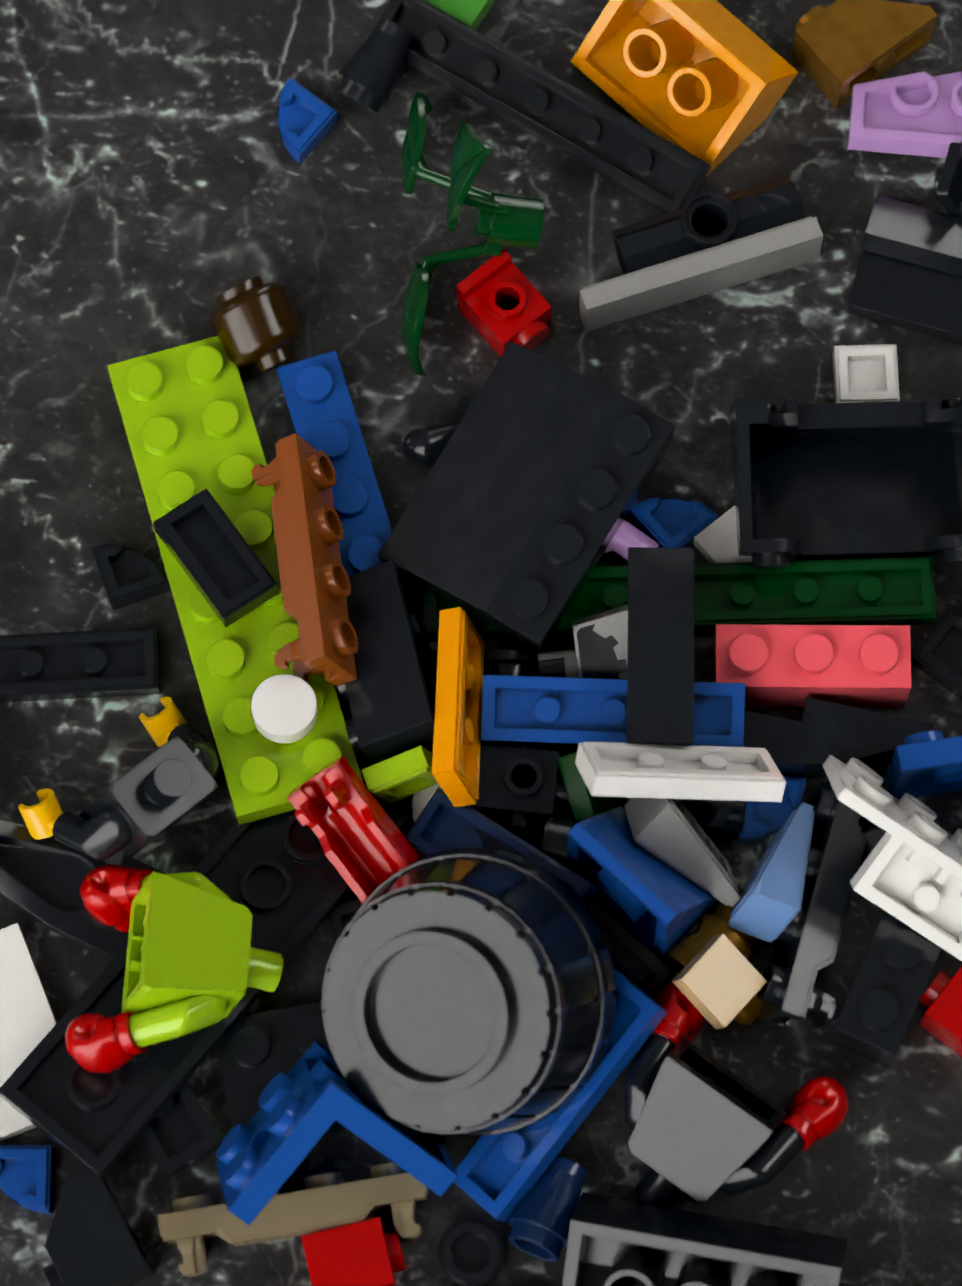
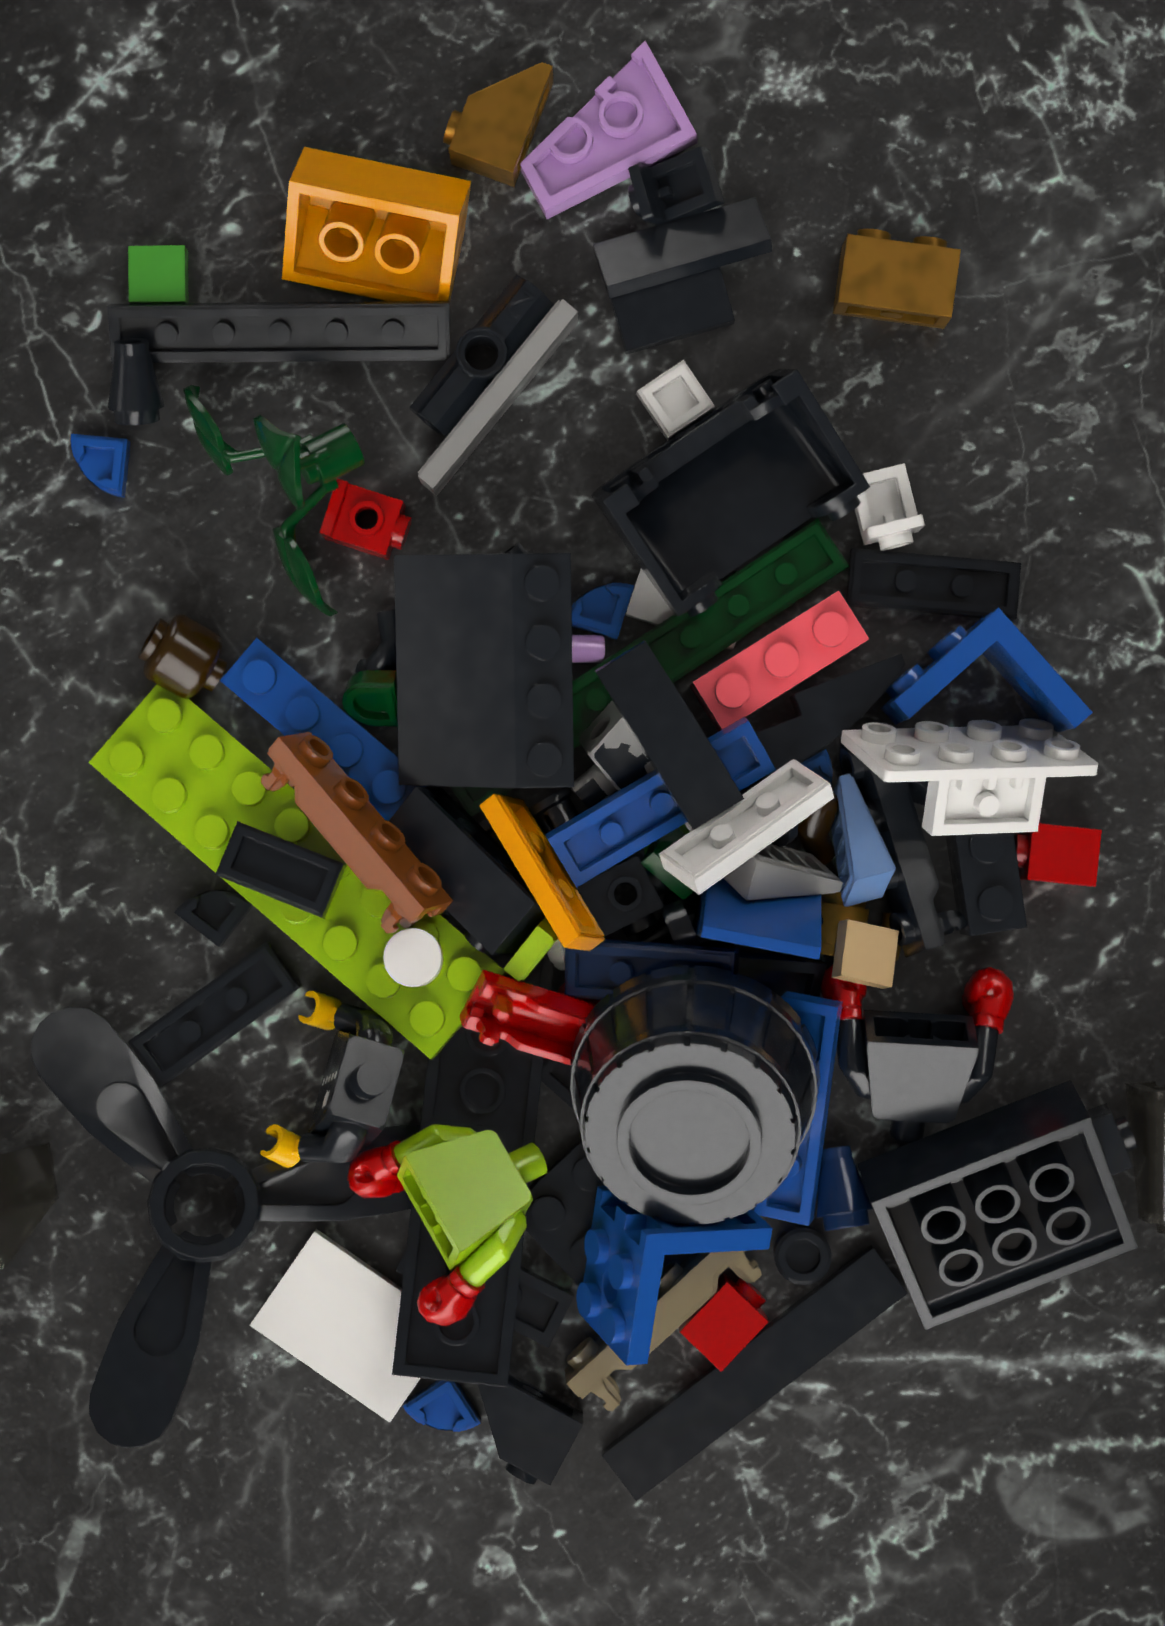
camera: 40 degrees left, 15 degrees up
(403, 465) = (372, 697): none -> dark green tile
(750, 834) = (815, 831): none -> dark brown arm

